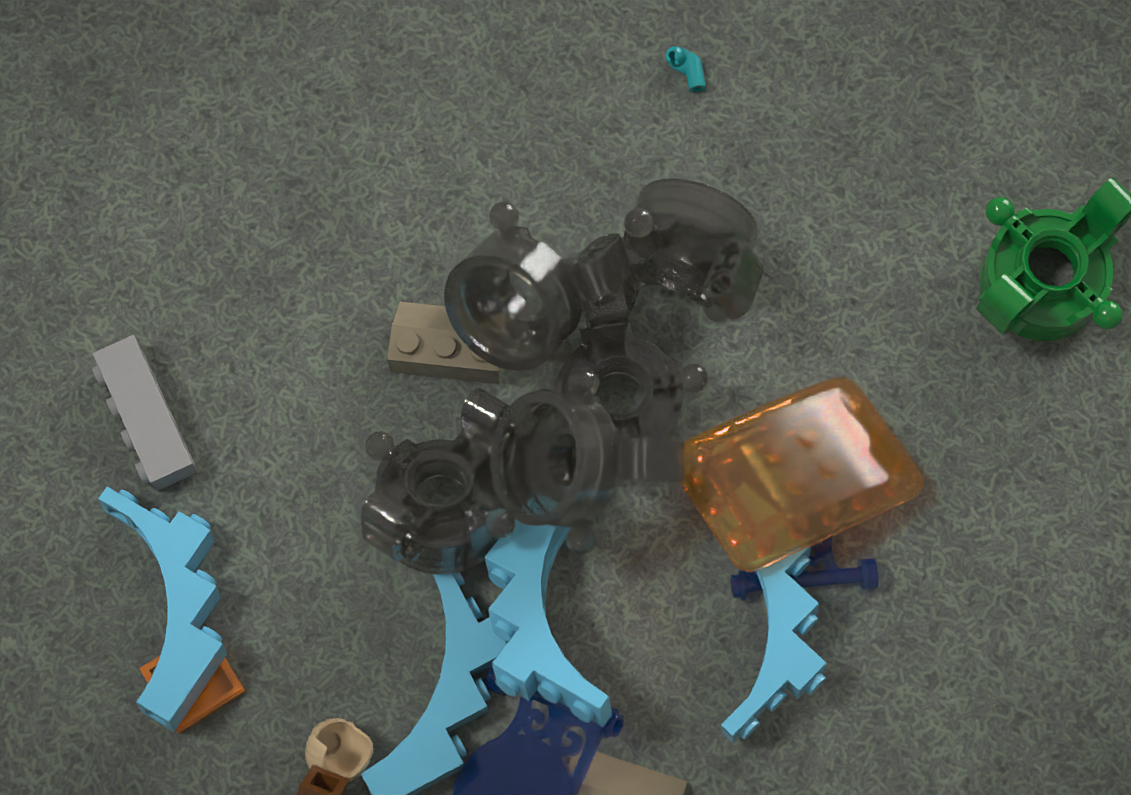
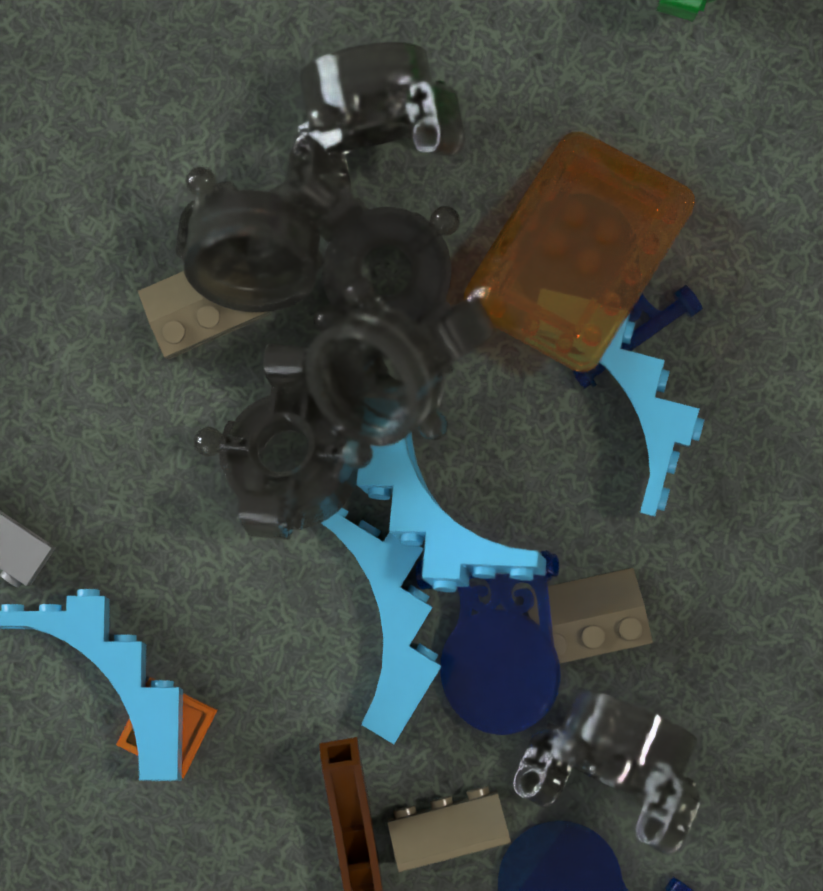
camera: 30 degrees left, 15 degrees up
(339, 748) = (329, 714): tan hair -> none

